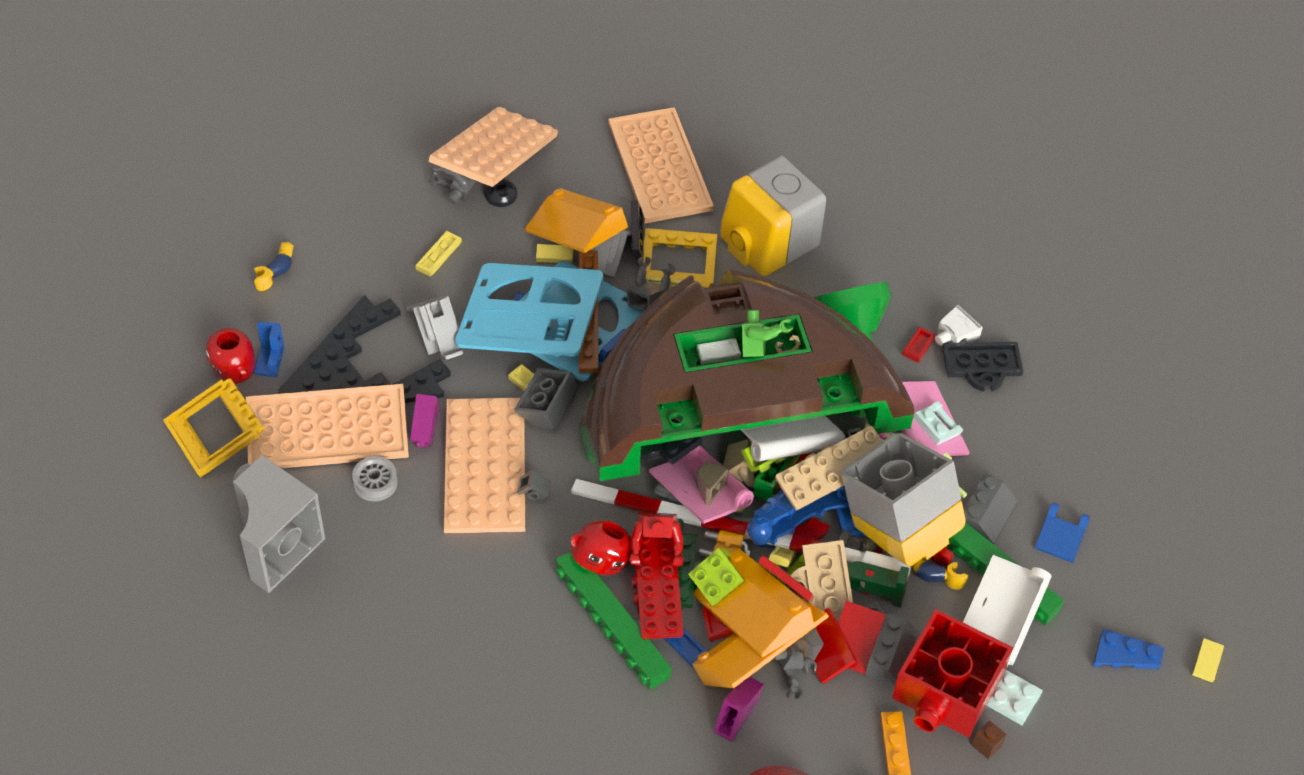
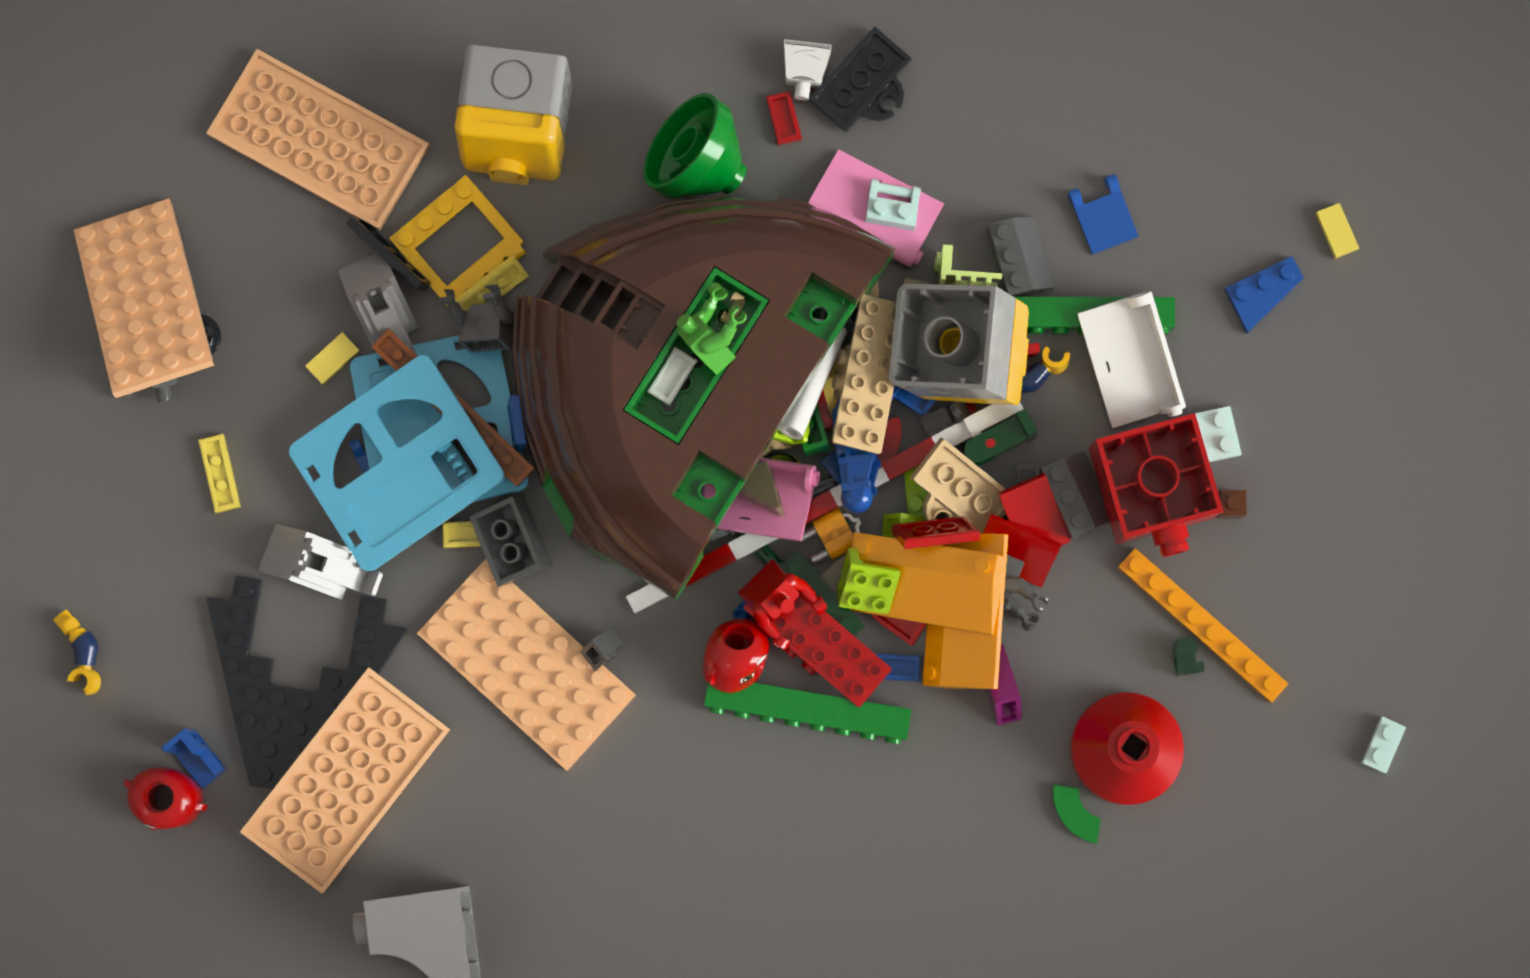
camera: 45 degrees left, 30 degrees up
(189, 440) = (235, 922): yellow hinge -> none
(370, 488) = (426, 775): light grey wheel -> none
(424, 420) = (426, 680): magenta slope -> none
(576, 220) = (330, 316): light orange slope -> none
(782, 556) = (895, 498): light yellow tile -> none

